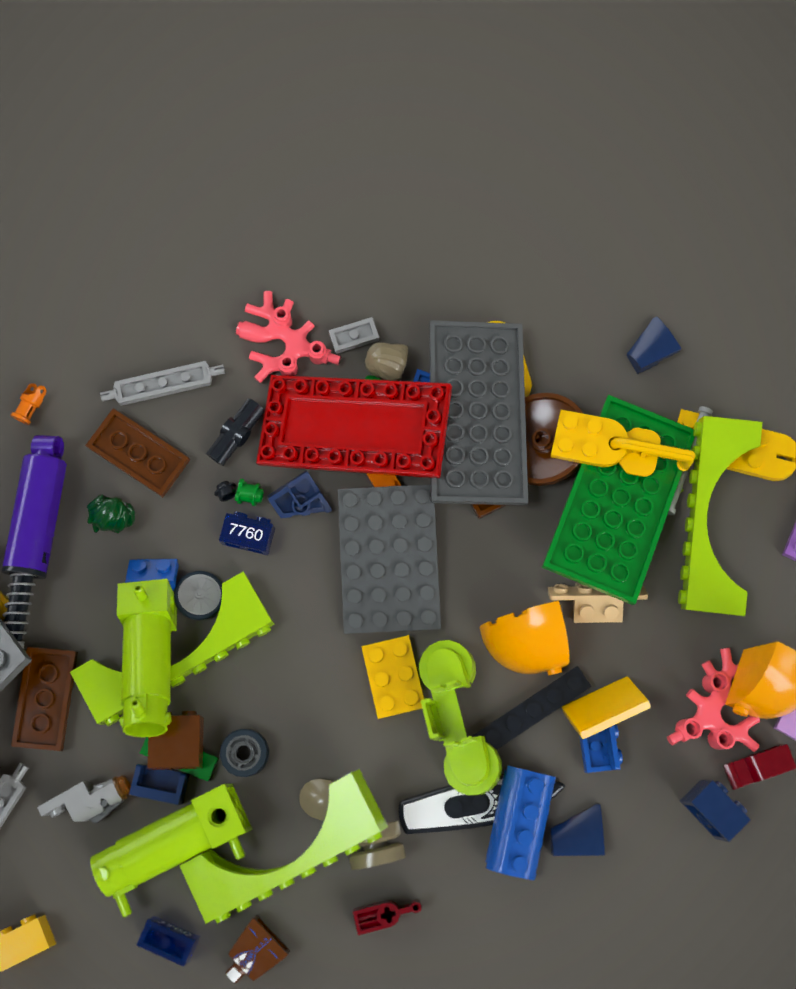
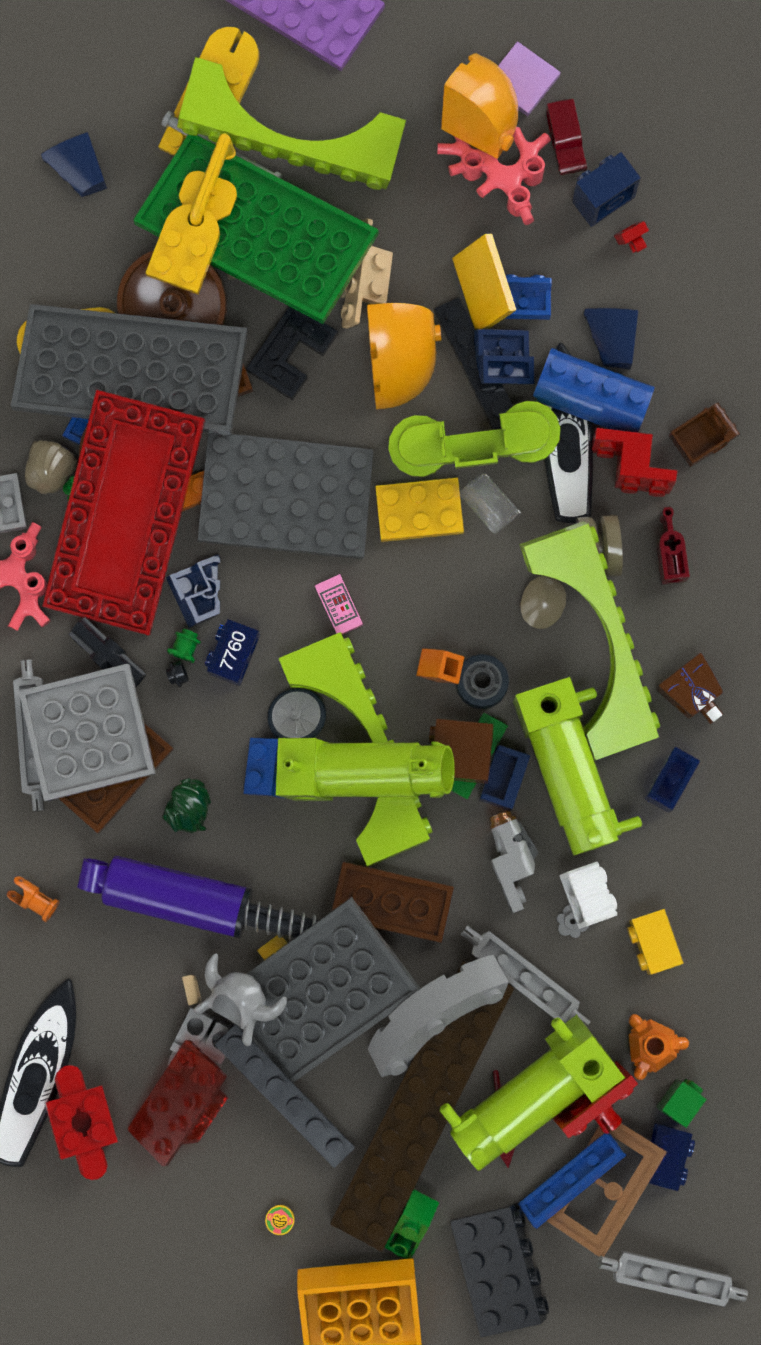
camera: 80 degrees left, 5 degrees up
(46, 859) = (565, 927): none -> light grey plant
(60, 875) = (589, 894): none -> white brick
(163, 423) = (87, 732): none -> light grey plate
(251, 713) = (440, 666): none -> orange brick
(299, 618) = (338, 605): none -> bright pink tile
(407, 740) = (489, 503): none -> clear slope
(458, 868) = (633, 462): none -> red bracket
(498, 934) = (704, 434): none -> reddish brown piece
(505, 530) = (271, 360): none -> black plate
(541, 734) = (503, 356): none -> dark blue slope
(676, 841) = (633, 236): none -> red tile

